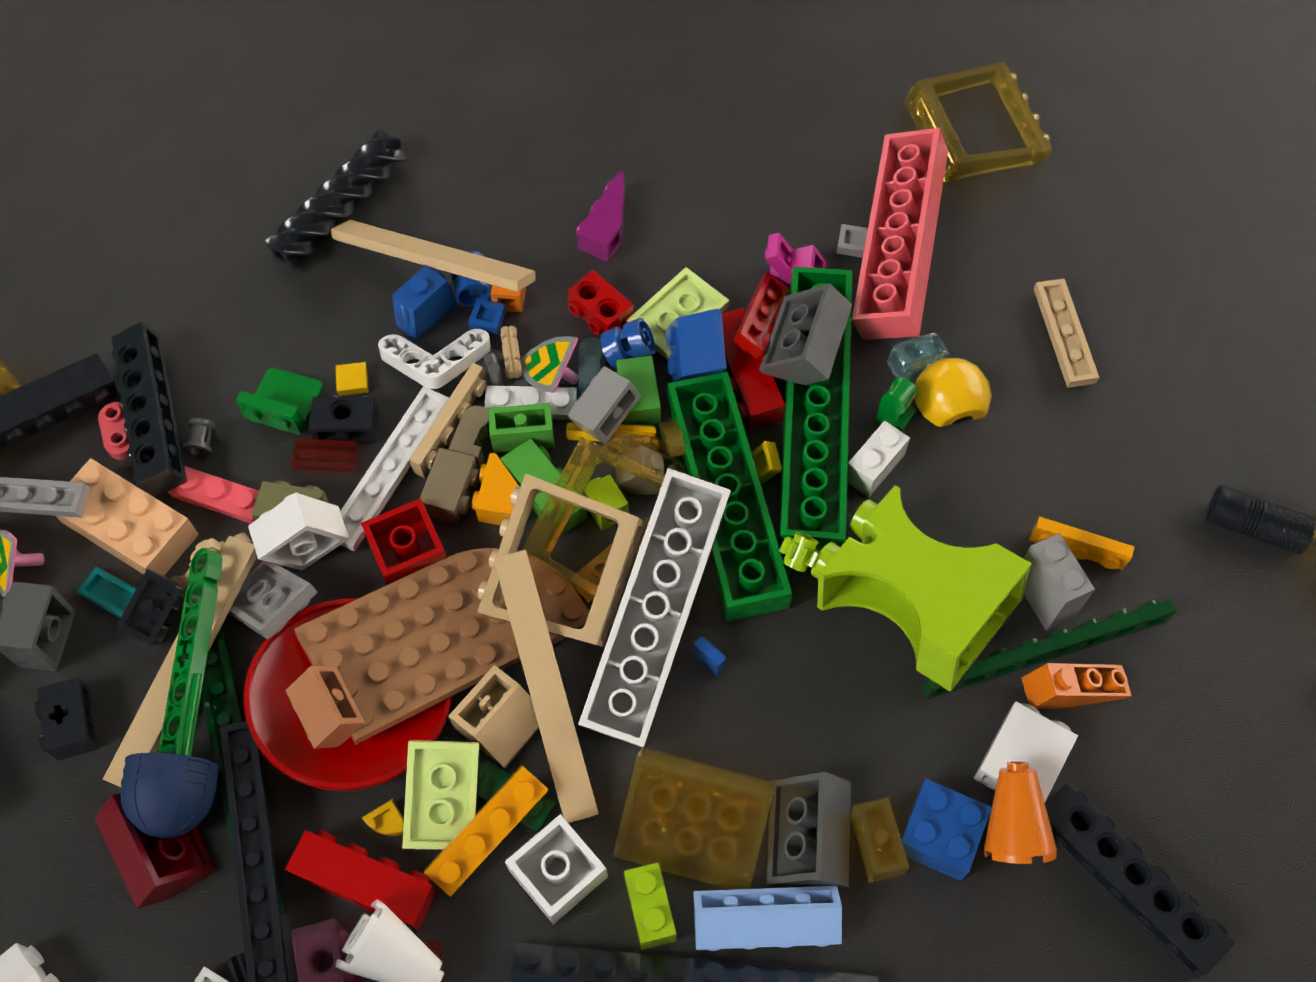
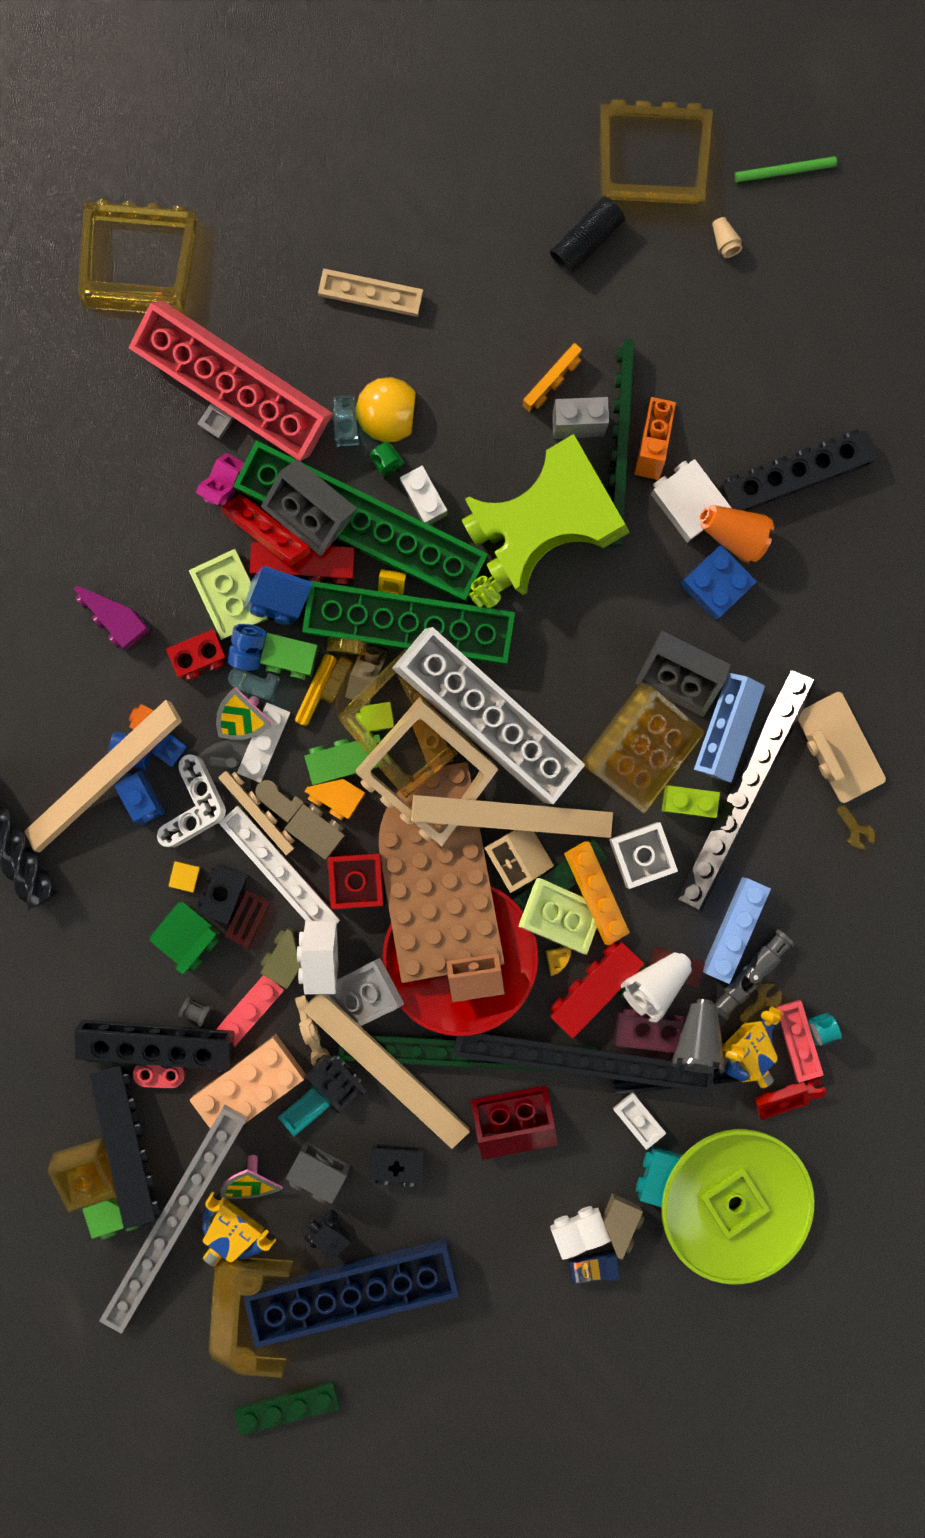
camera: 65 degrees left, 25 degrees up
(171, 789) = (487, 1103): piece -> none
(511, 352) = (211, 742): tan axle -> none
(517, 424) = (289, 758): bright green brick -> none
(604, 405) = (301, 689): light grey brick -> none
(709, 656) = (530, 689): blue tile -> none
(879, 840) = (709, 630): clear yellow brick -> none

